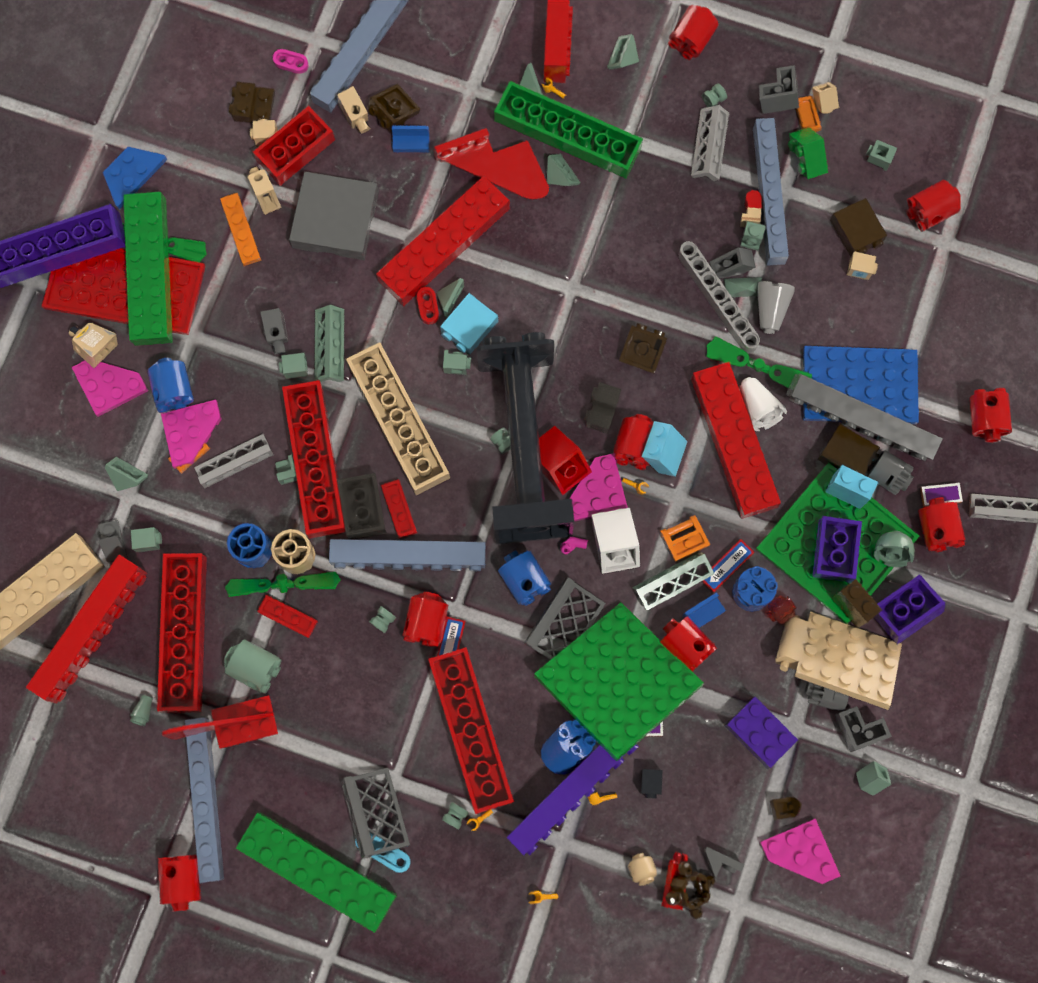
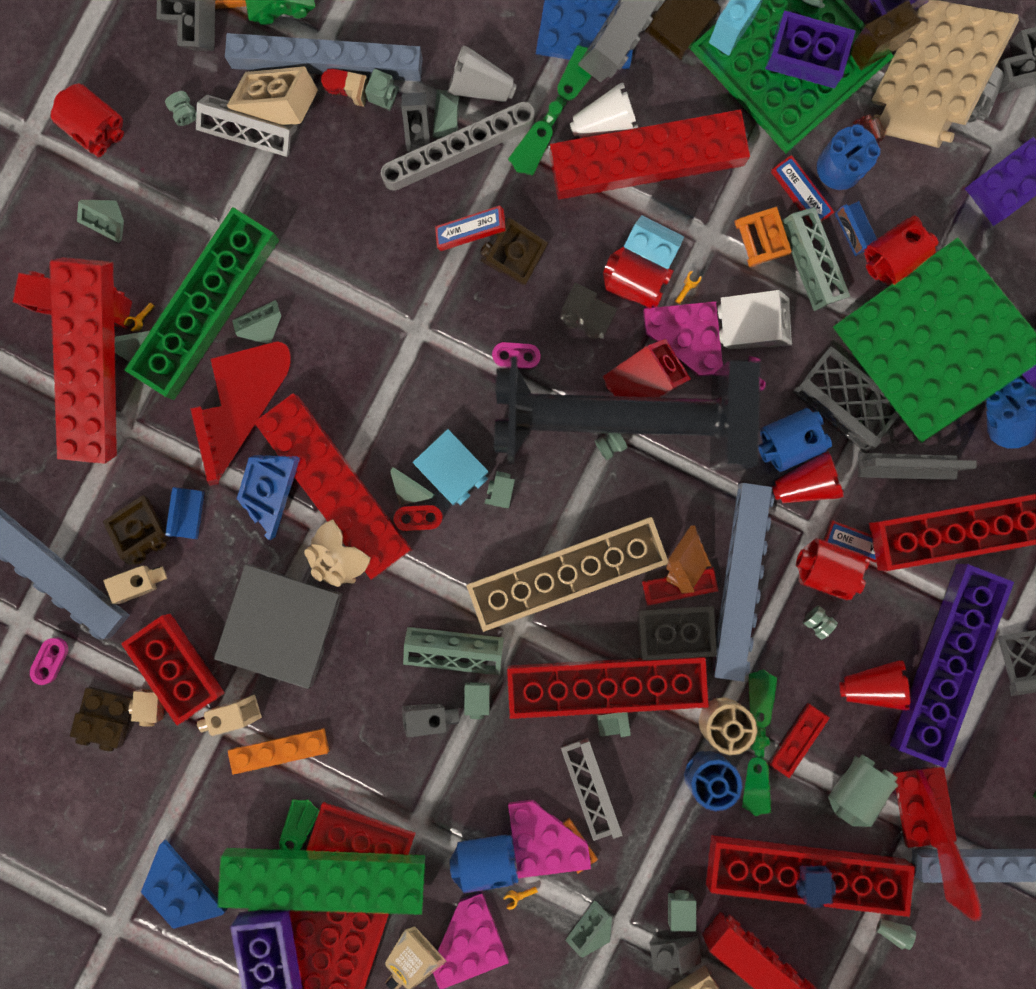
camera: 85 degrees left, 10 degrees up
(146, 415) = (518, 896): none -> light orange hand
(175, 630) = (815, 886): none -> dark blue brick
(336, 671) = (878, 686): none -> red cone
(360, 726) = (952, 664): none -> dark purple brick
(385, 245) = (333, 561): none -> tan brick
(418, 506) = (687, 562): none -> dark orange slope
(435, 192) = (266, 489): none -> blue wing
(493, 597) = (810, 482): none -> red cone
(512, 51) = (84, 359): none -> red brick
(516, 676) = (911, 466): none -> dark grey fence
(562, 362) = (518, 350): none -> dark pink plate
(654, 312) = (470, 228): none -> tile
(734, 159) = (275, 95): none -> tan slope

